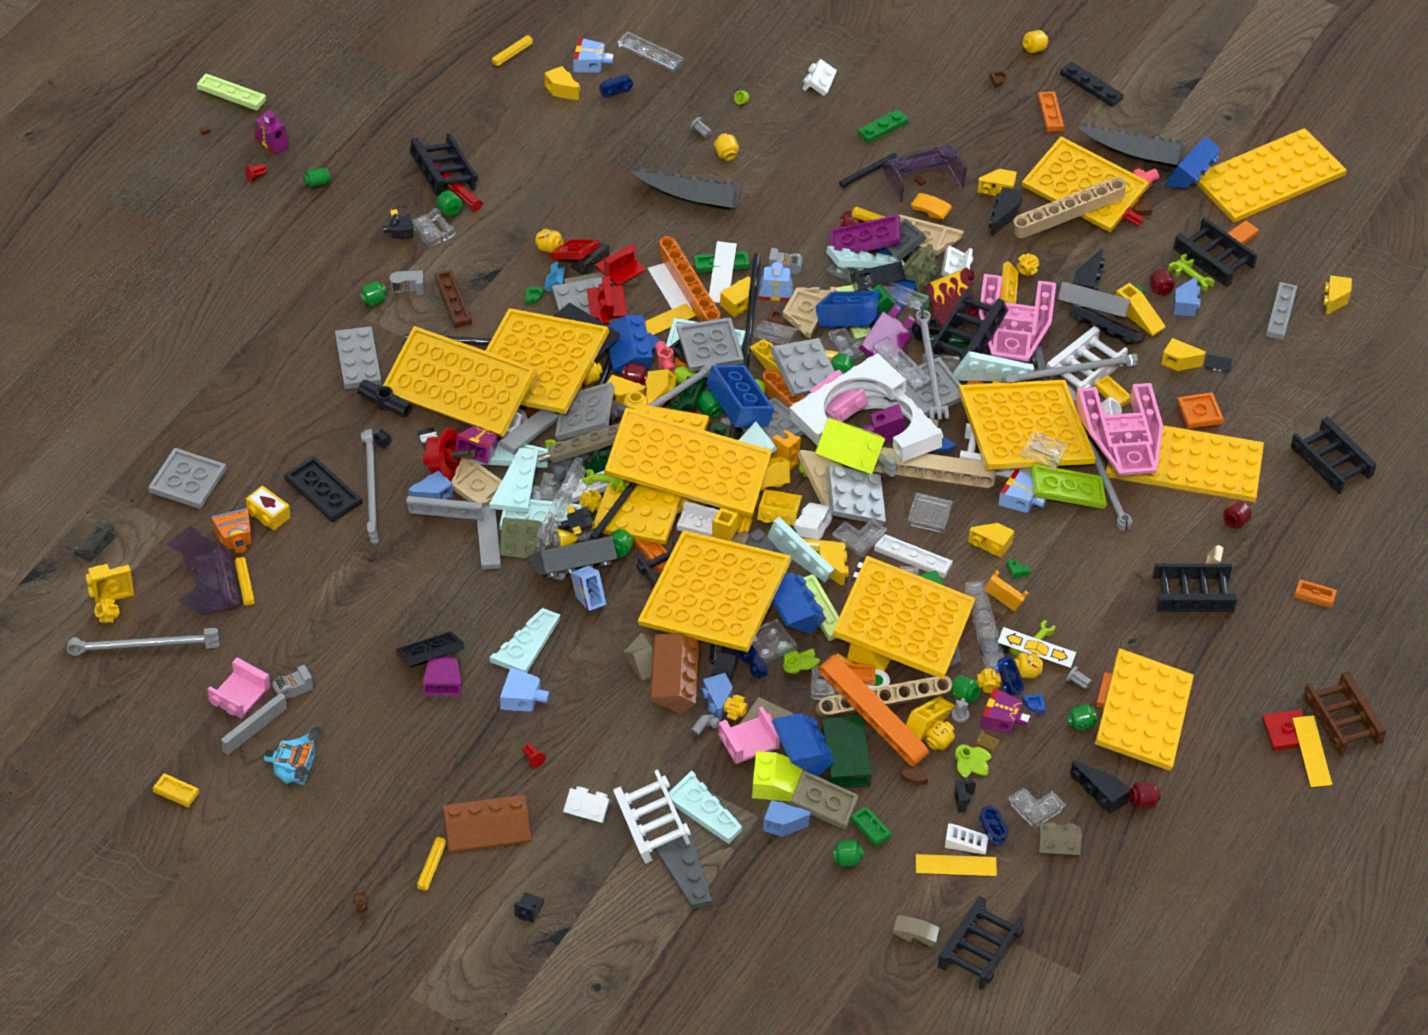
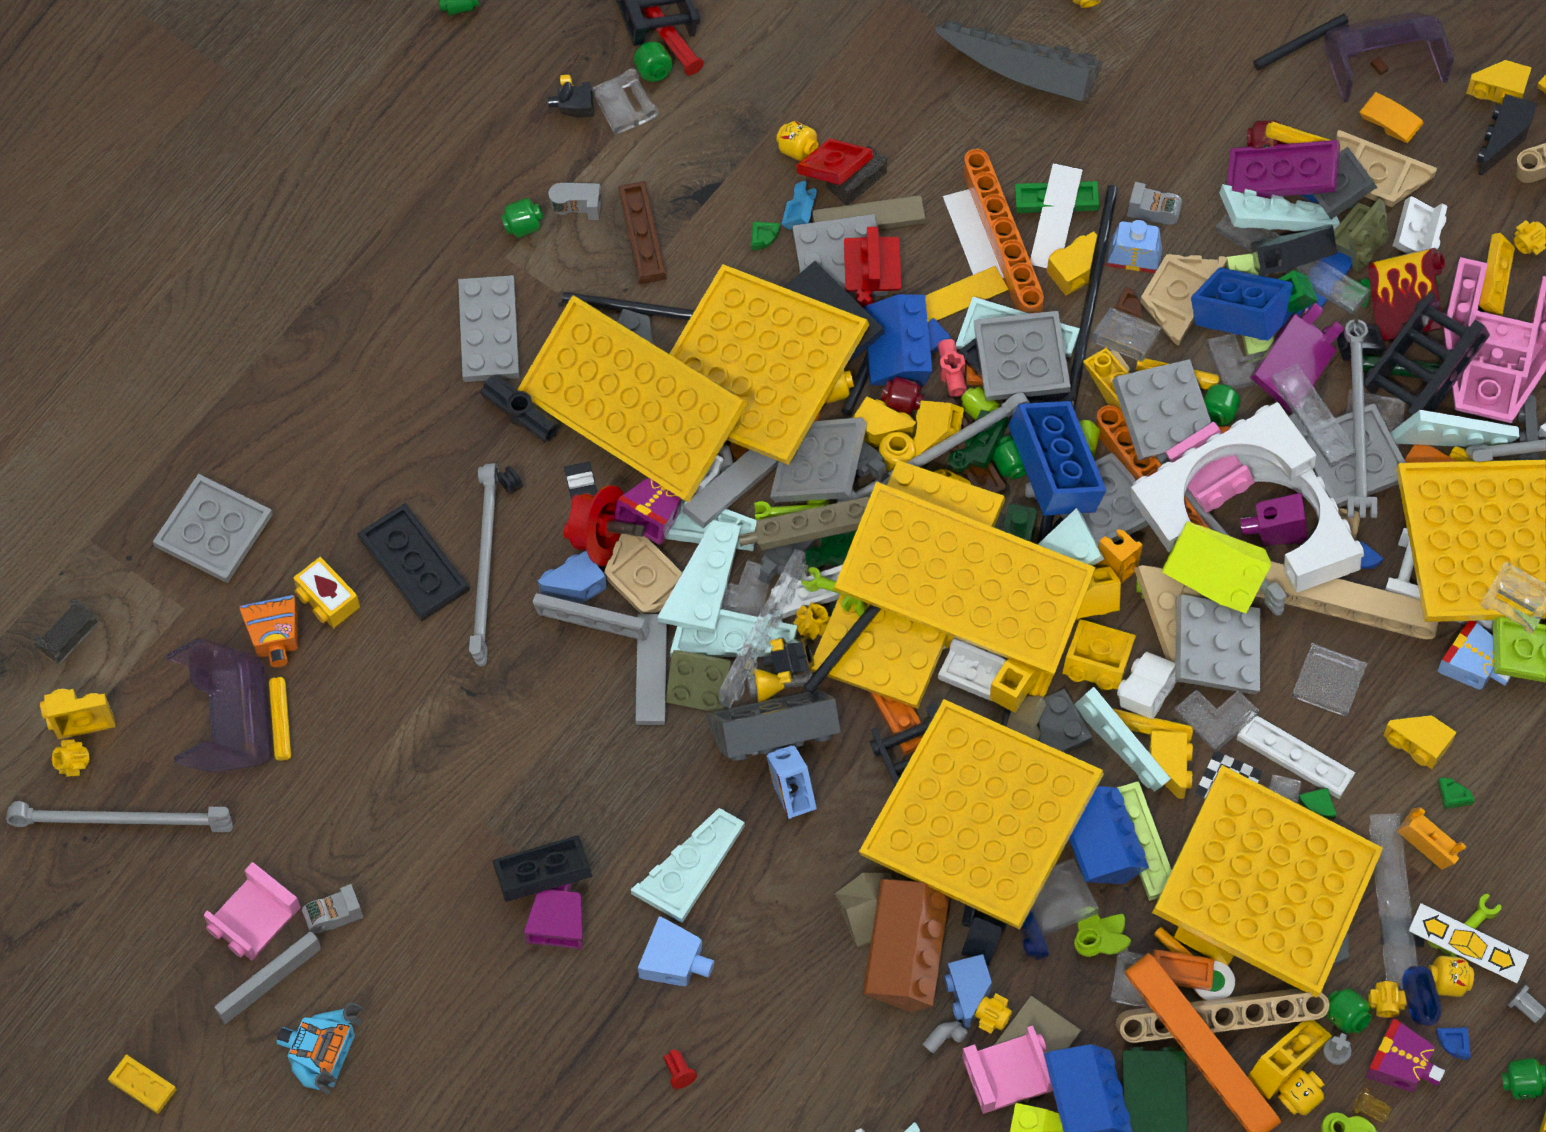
camera: 10 degrees right, 15 degrees up
(621, 265) = (901, 197): red bracket -> none
(622, 541) = (850, 699): green head -> none

